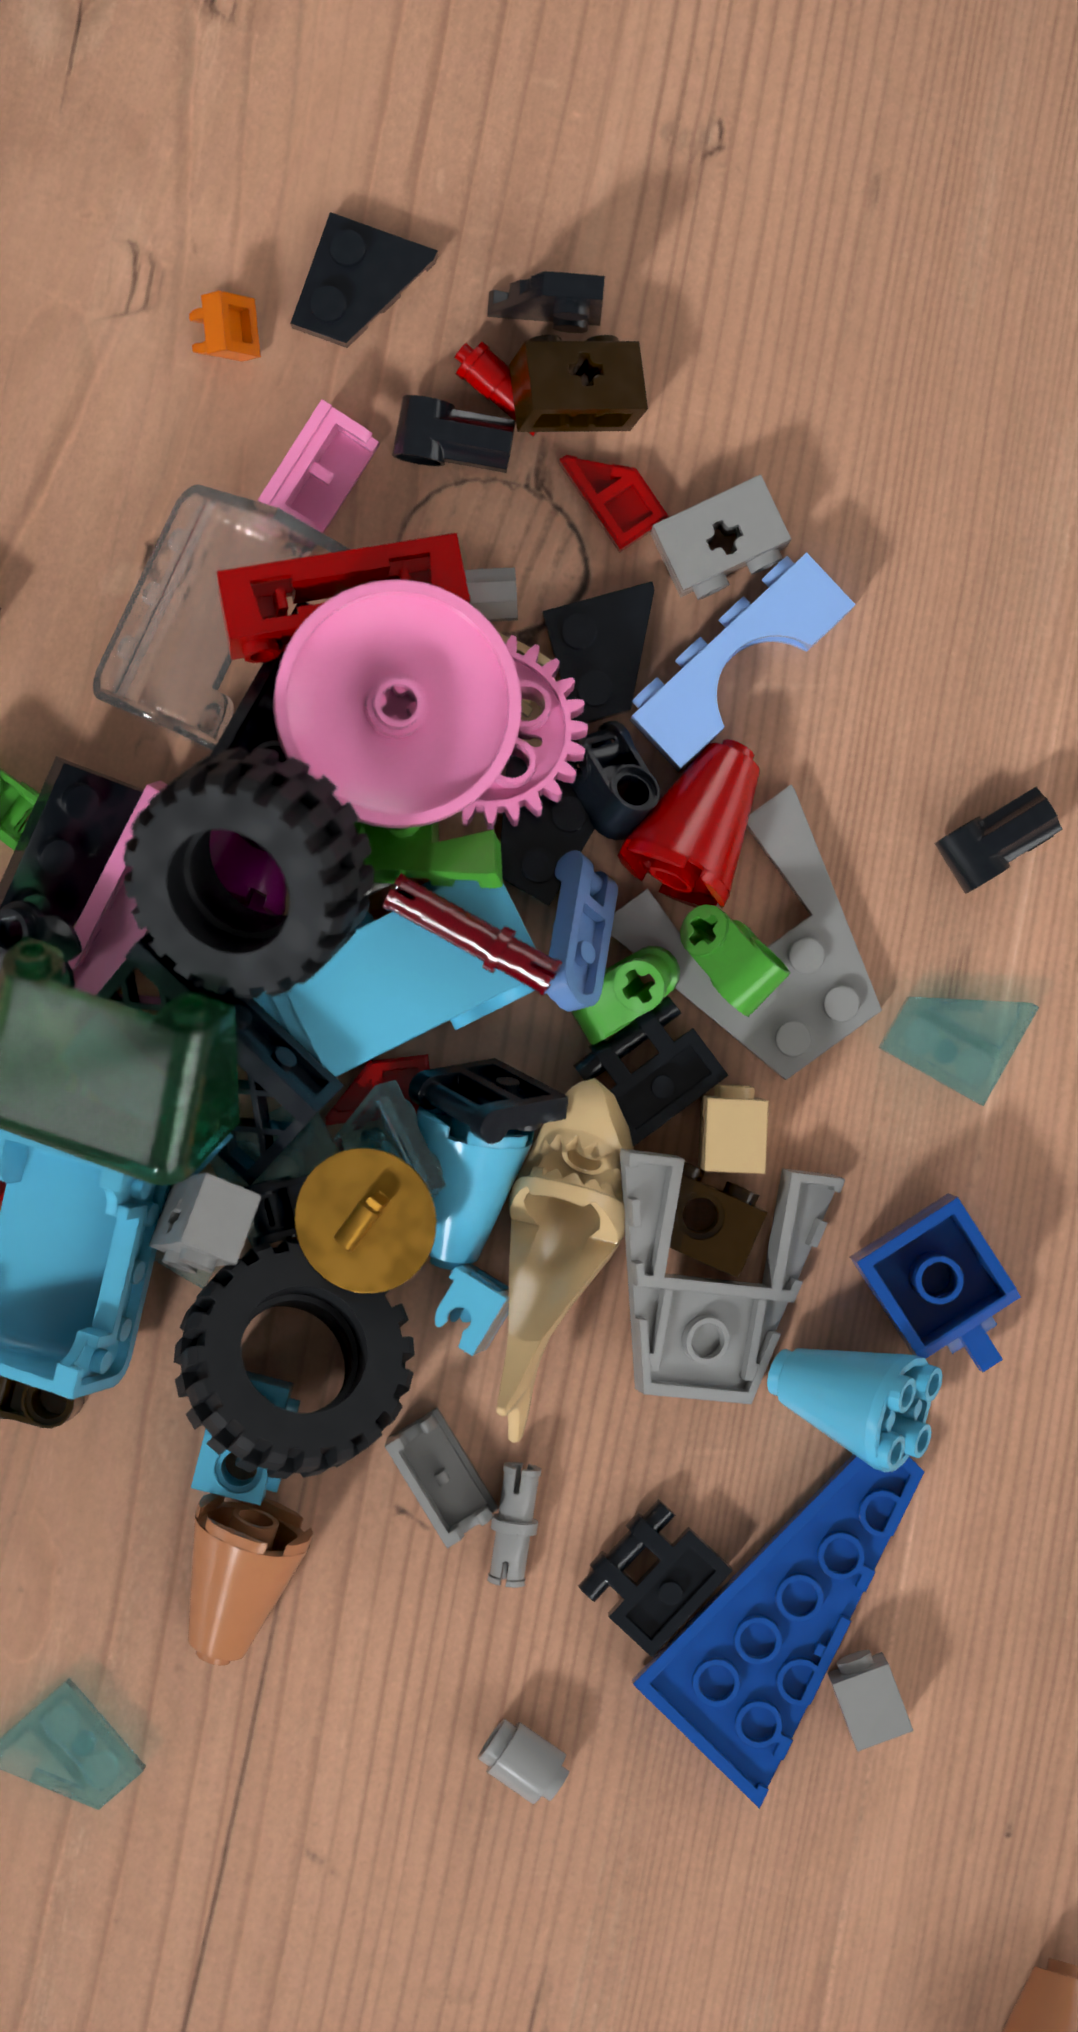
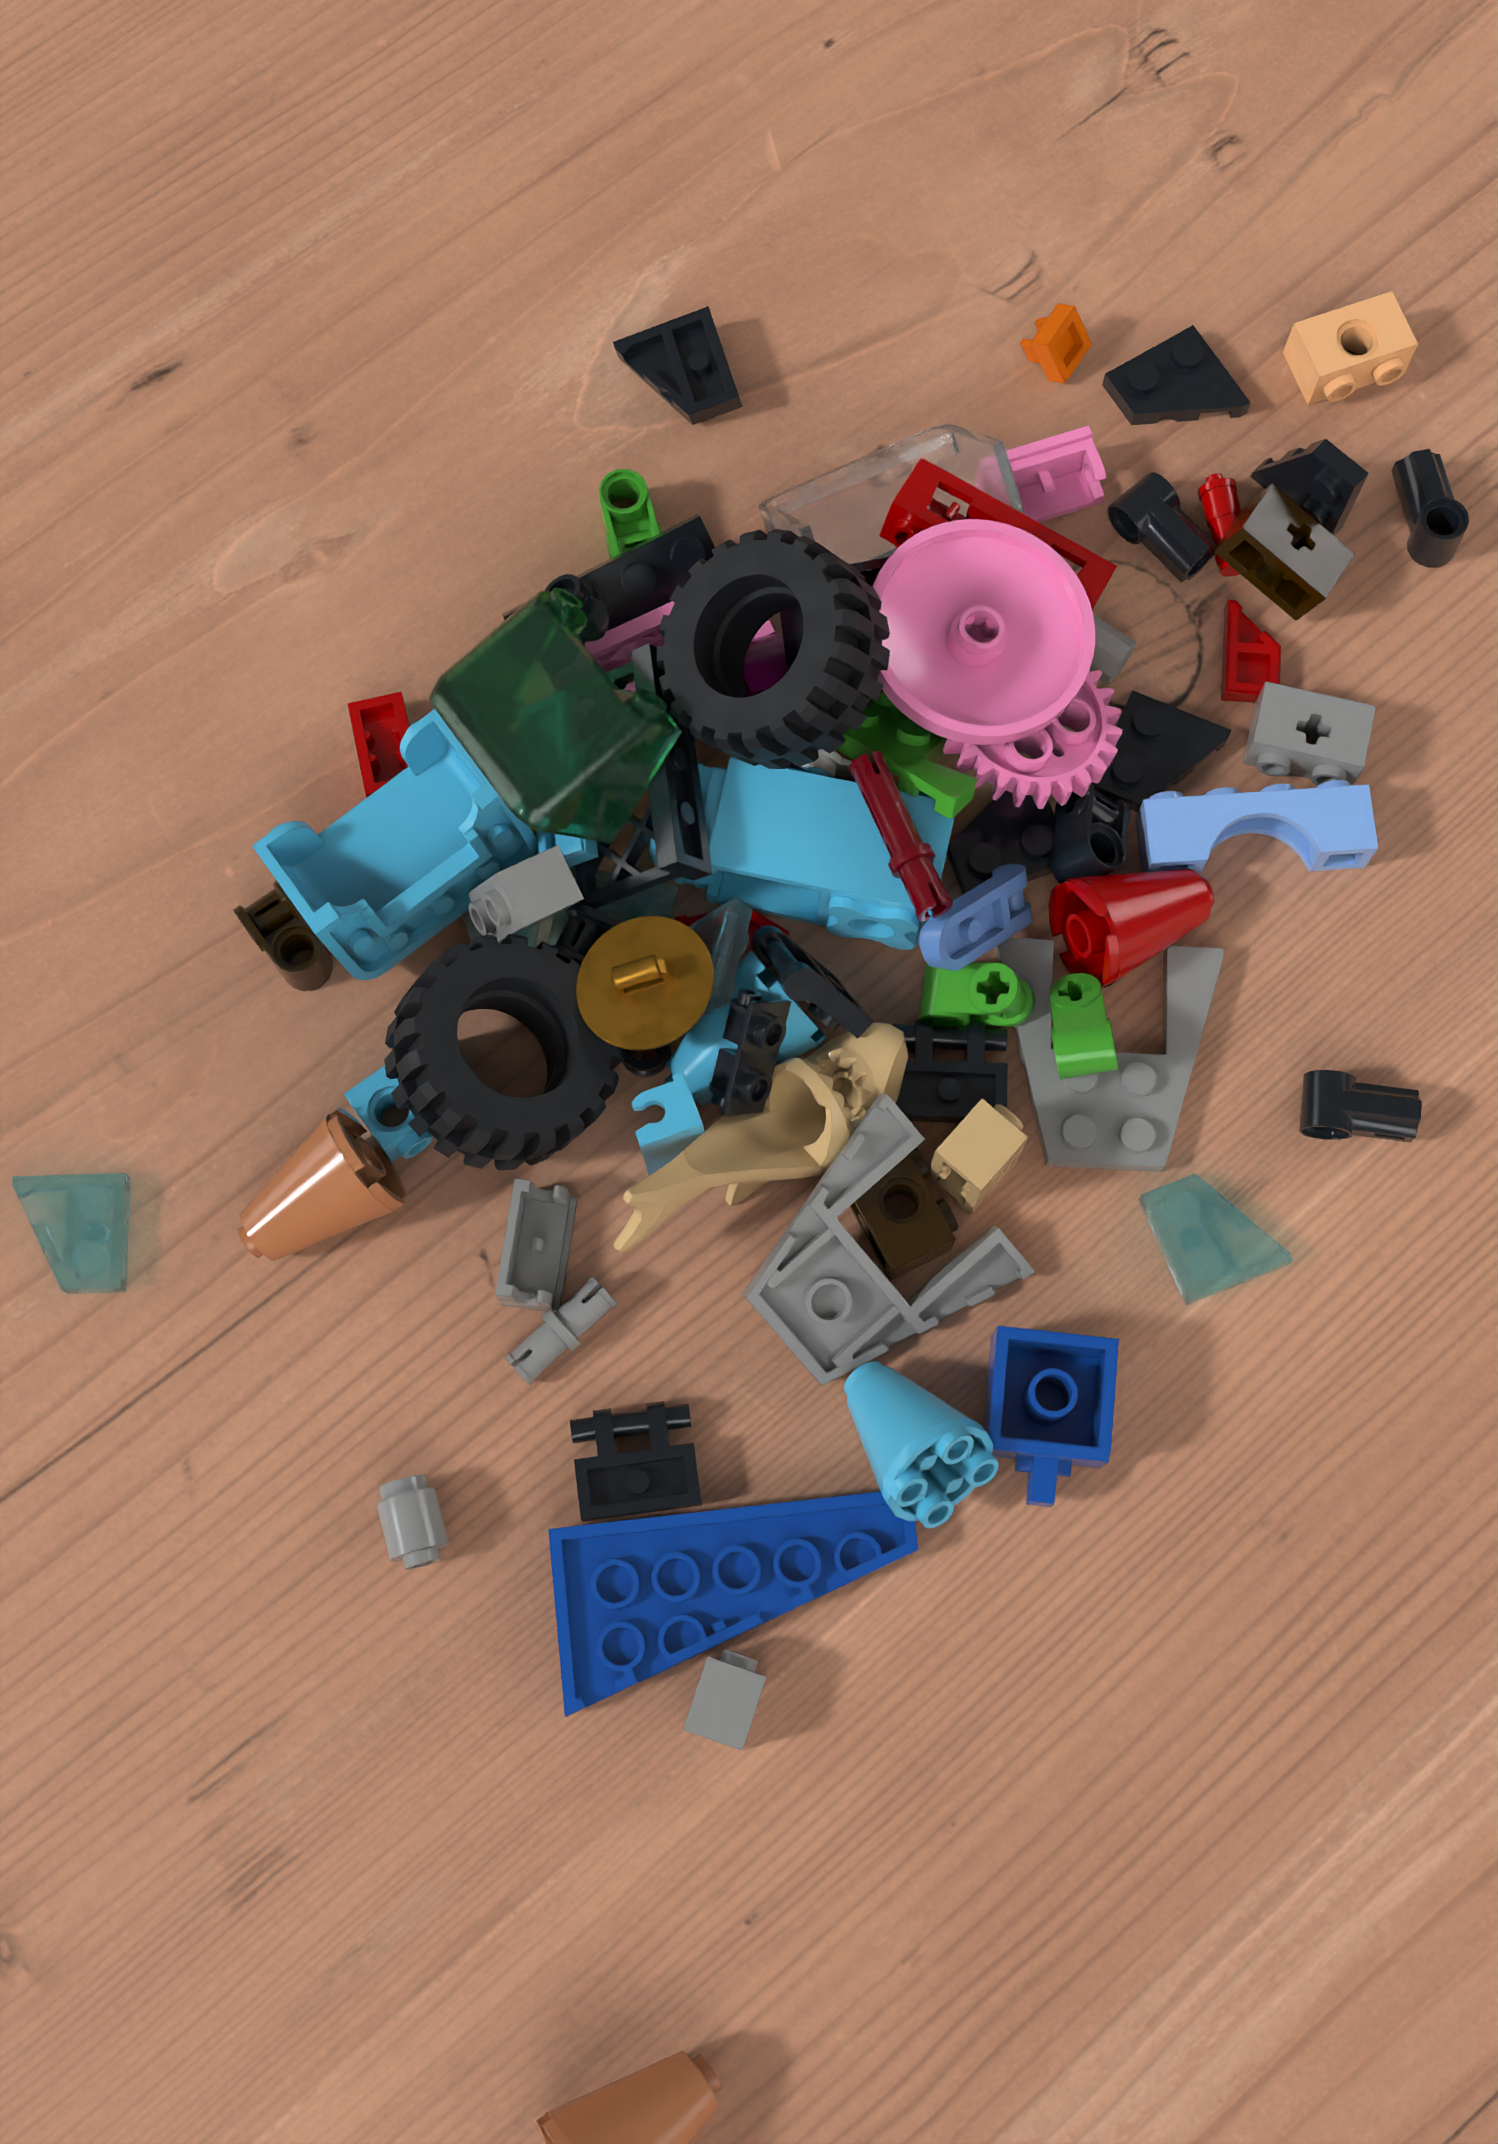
camera: 35 degrees right, 15 degrees down
(495, 94) = (1370, 329): none -> light nougat brick
(501, 1224) = (744, 1077): none -> black hinge
(661, 229) = (1429, 507): none -> black piece

